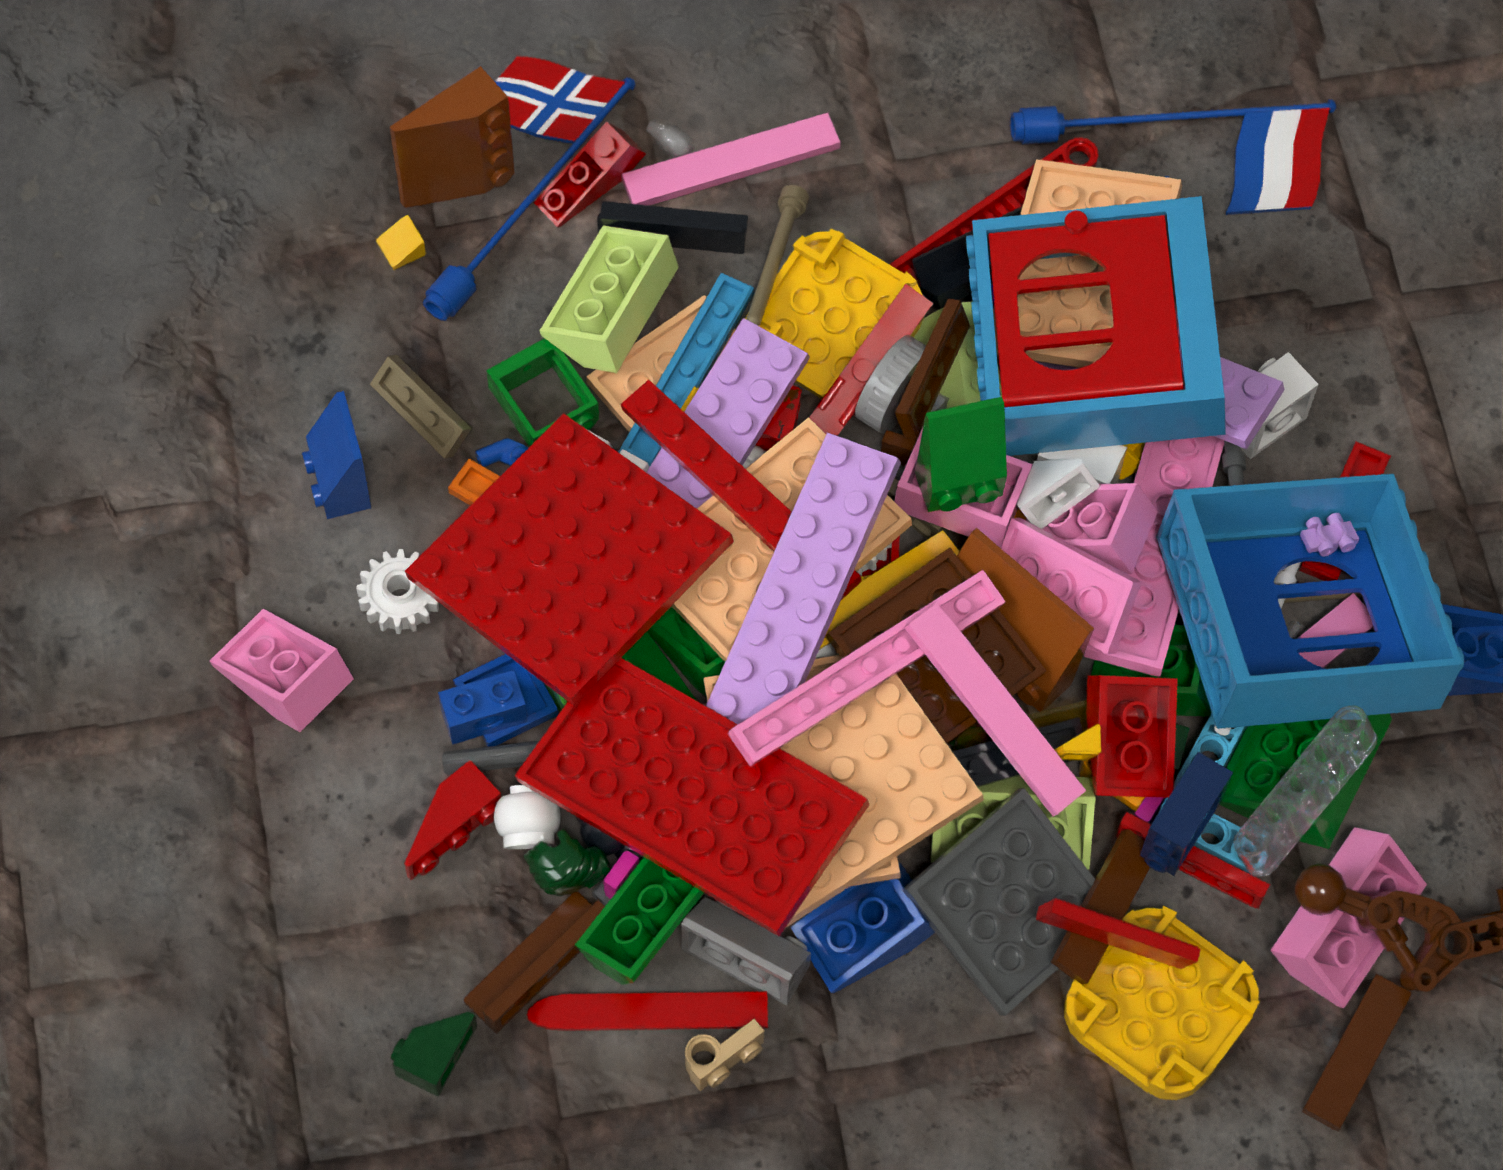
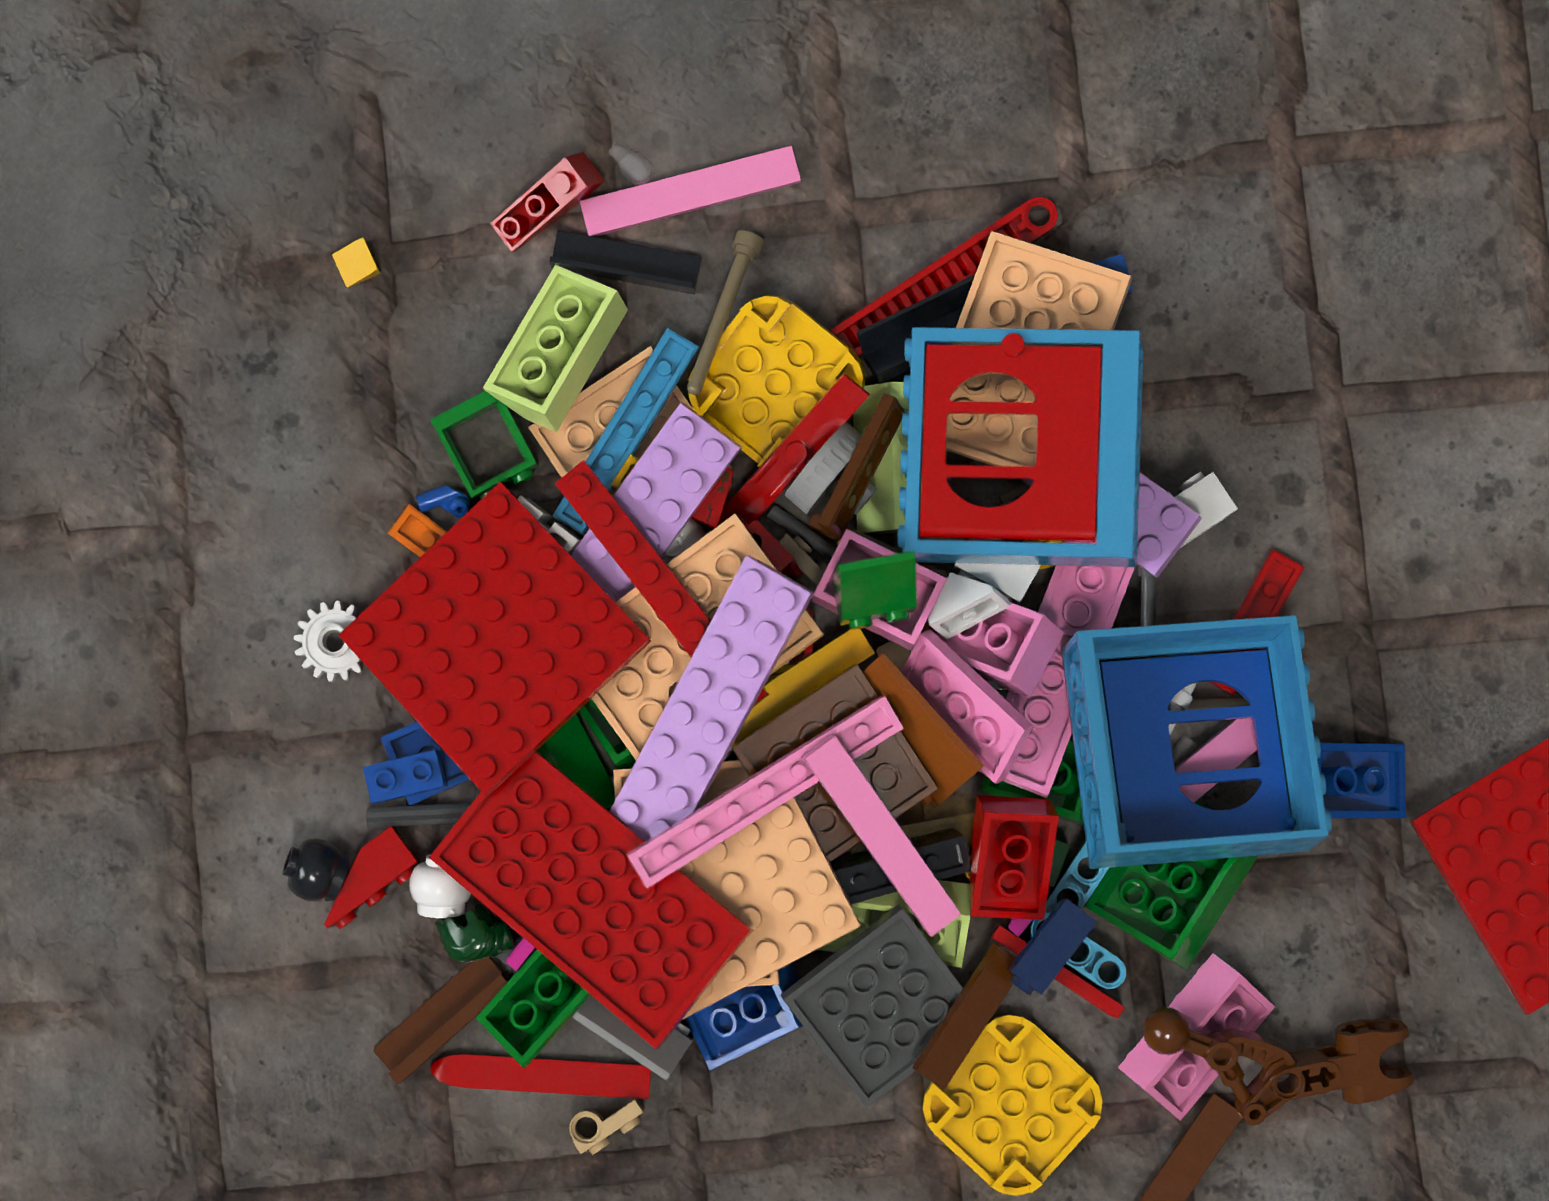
camera: 10 degrees right, 20 degrees up
(283, 669) = (219, 712): bright pink slope -> none
(336, 462) = (281, 509): blue slope -> none
(392, 812) = (316, 870): none -> black piece
(420, 406) = (365, 446): dark tan plate -> none
(433, 1051) = (341, 1103): dark green slope -> none
(454, 143) = (412, 179): dark orange slope -> none
(550, 105) = (514, 114): flag -> none
(1082, 746) = (959, 869): yellow slope -> none
(1118, 933) = (975, 1051): red tile -> none
(1273, 154) = (1235, 228): flag -> none
(1305, 790) = (1185, 926): clear beam -> none
(1329, 537) = (1224, 664): lavender piece -> none

